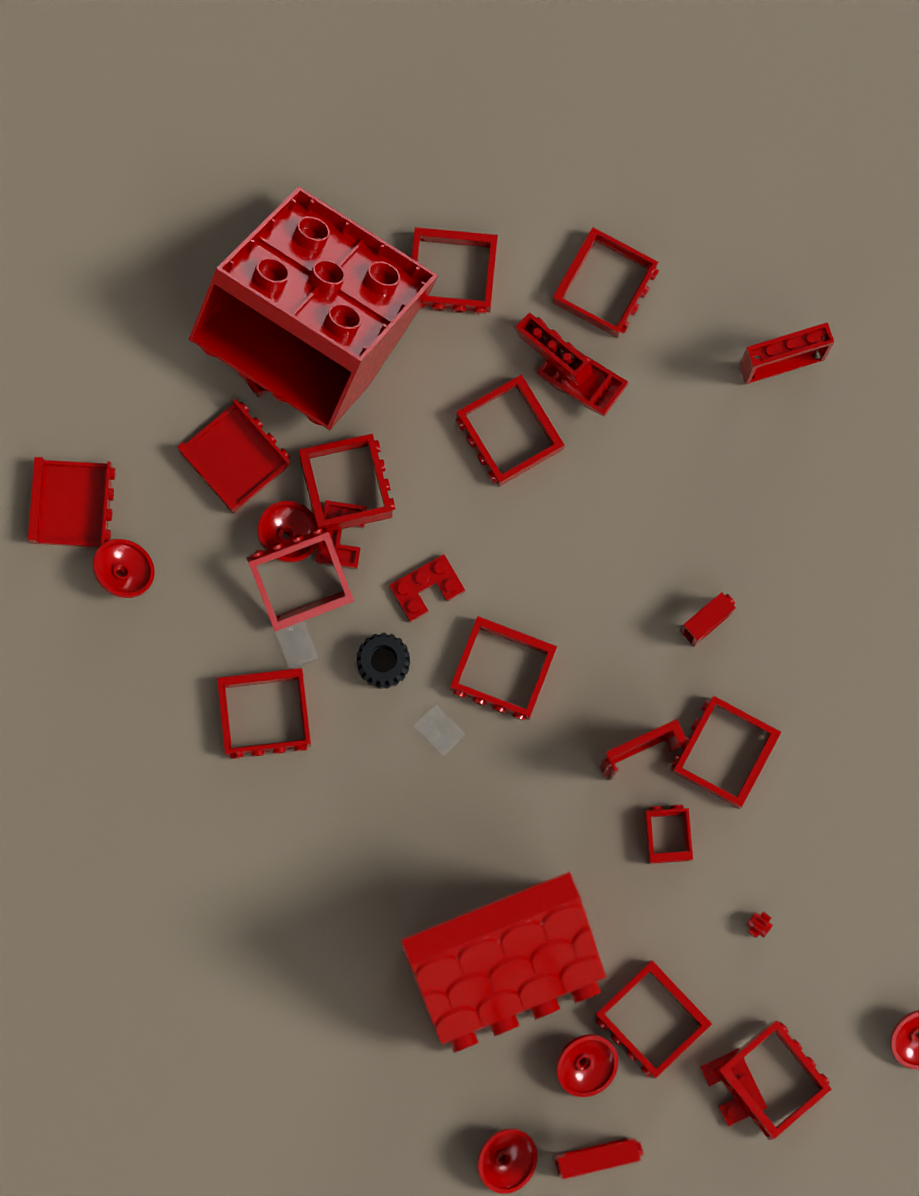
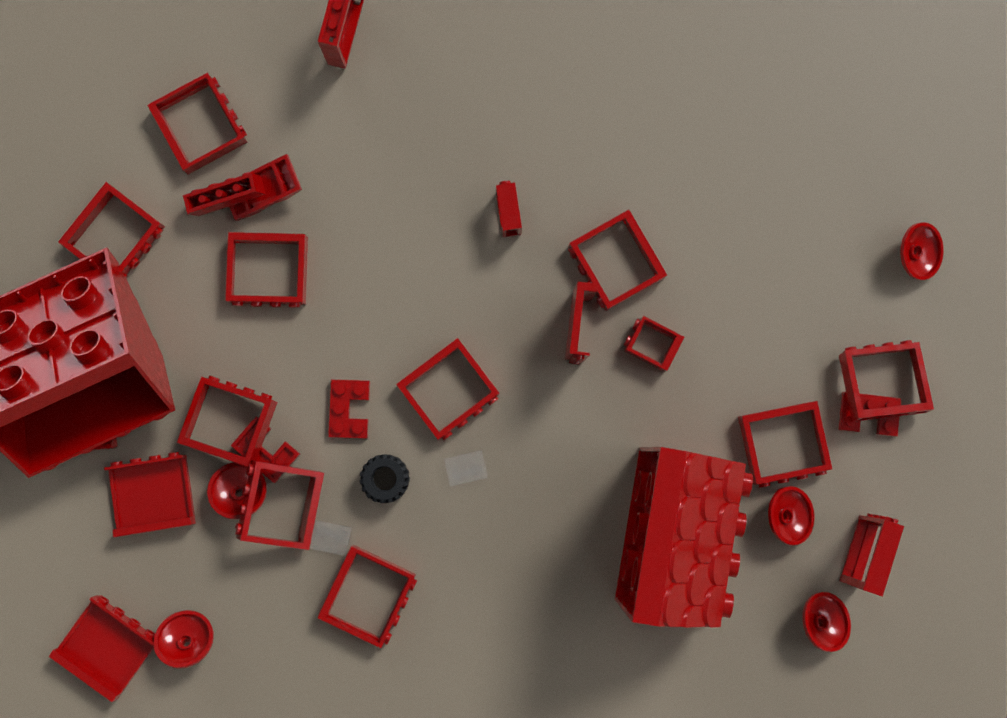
camera: 60 degrees left, 5 degrees up
(759, 924) = (762, 318): red gear -> none

